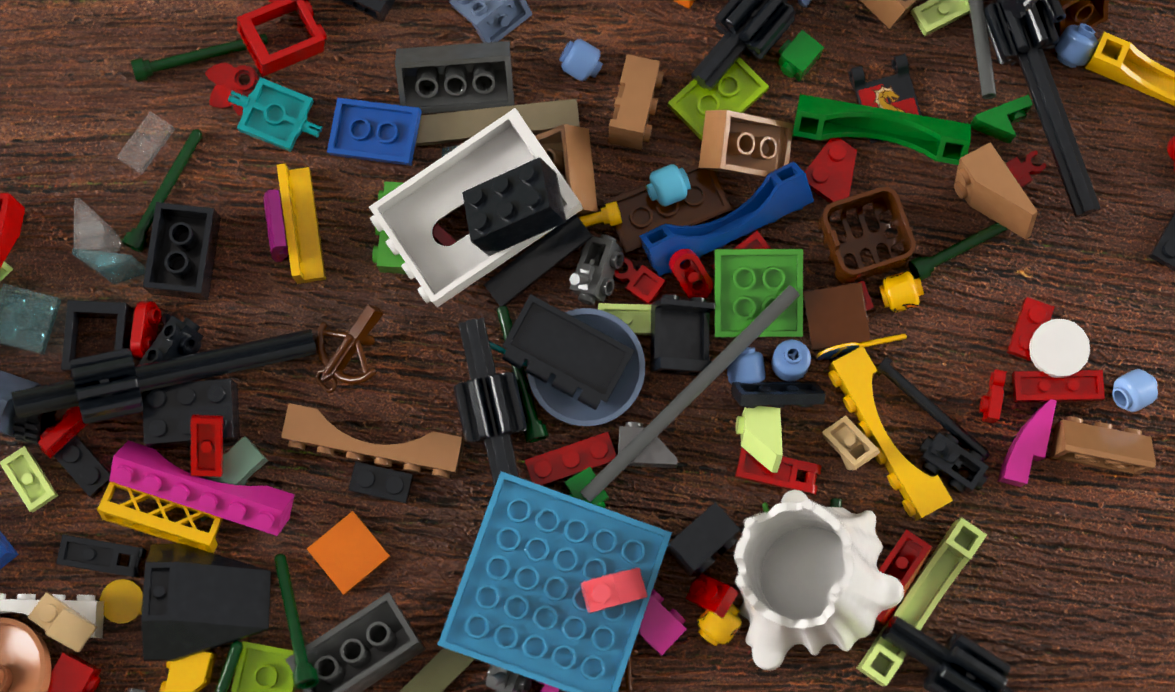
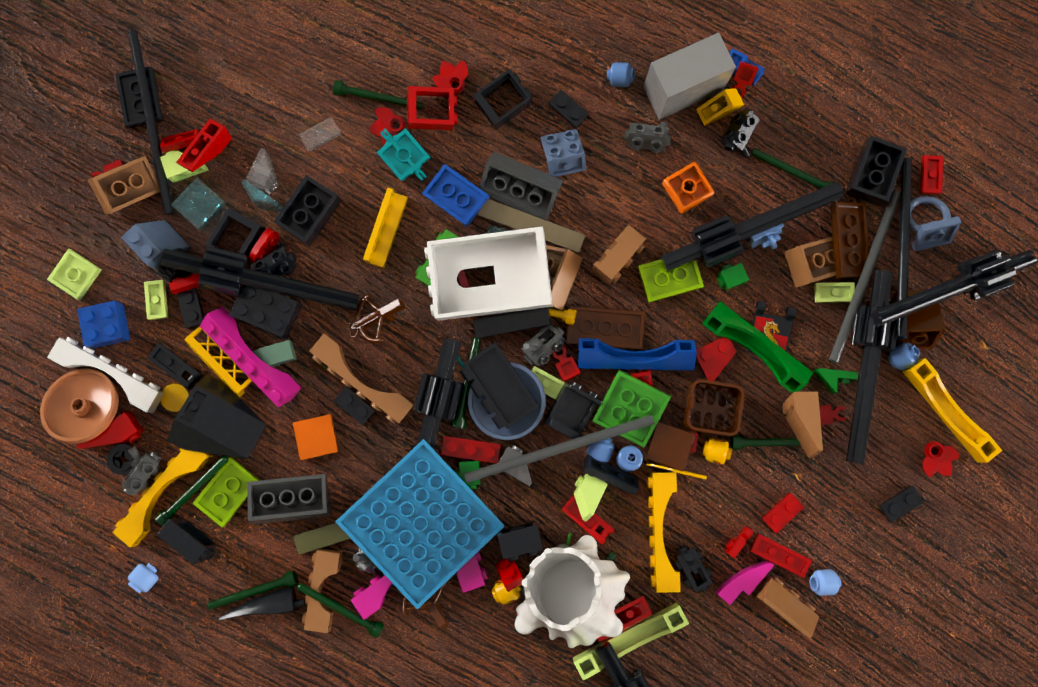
camera: 30 degrees right, 5 degrees up
(62, 622) = (132, 395): tan slope -> none
(137, 237) = (287, 188): dark green piece -> none
(207, 445) = (263, 335): red plate -> none
(275, 225) = (368, 224): magenta slope -> none
(304, 674) = (252, 497): dark green piece -> none
(514, 207) = (510, 287): black brick -> none
(580, 60) = (599, 213): medium blue head -> none
(613, 590) = (452, 543): coral slope -> none
(668, 185) = (611, 316): medium azure head -> none
(691, 272) = (597, 377): red plate -> none
(744, 143) = (670, 315): medium nougat slope -> none
(850, 443) = (638, 526): tan slope -> none
(928, 406) = (683, 491): black bar -> none
(1059, 348) = (793, 534): white tile -> none

